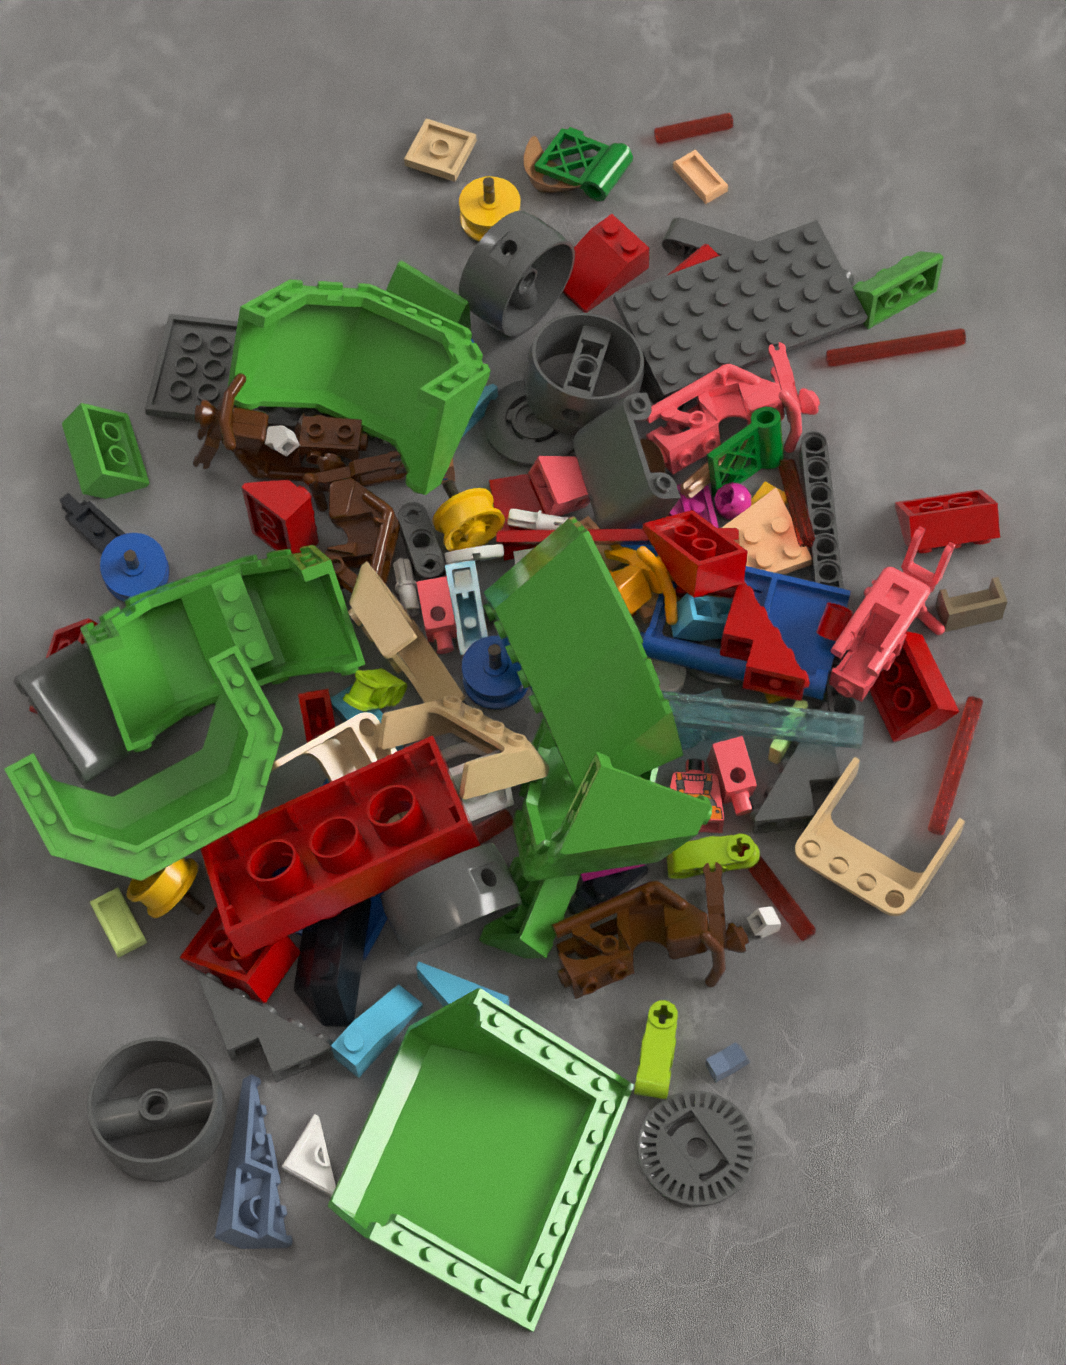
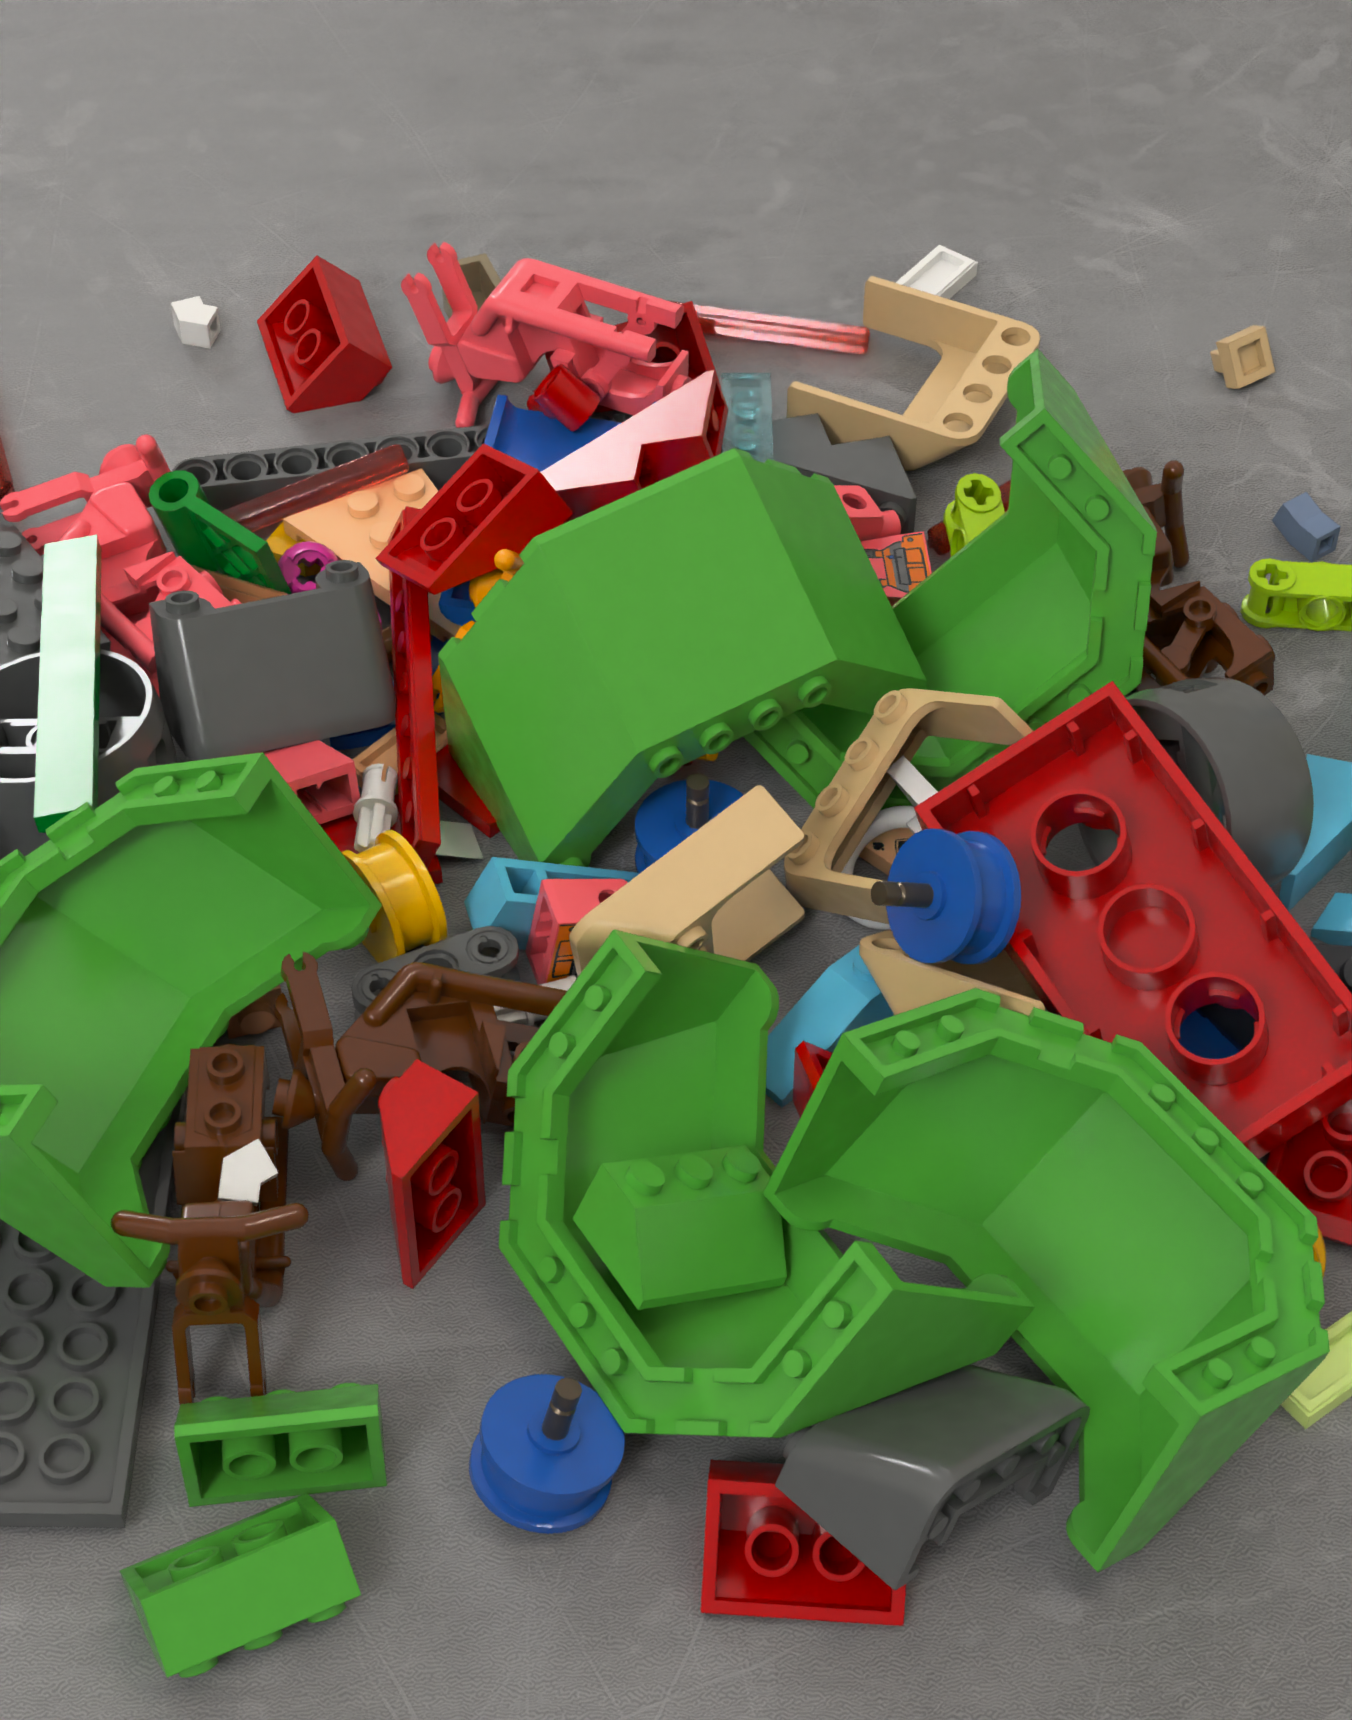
camera: 100 degrees left, 15 degrees down
(90, 522) = (433, 1572): black hinge -> none
(166, 466) = (281, 1444): none -> bright green slope
(363, 738) = (951, 896): none -> blue wheel
(375, 690) = (802, 974): lime piece -> none
(480, 553) = (463, 881): white tile -> none
(605, 361) = (68, 680): none -> tile
(895, 1060) = (1243, 357): none -> tan tile
(975, 454) = (196, 322): none -> white piece
(999, 882) = (941, 273): none -> white tile

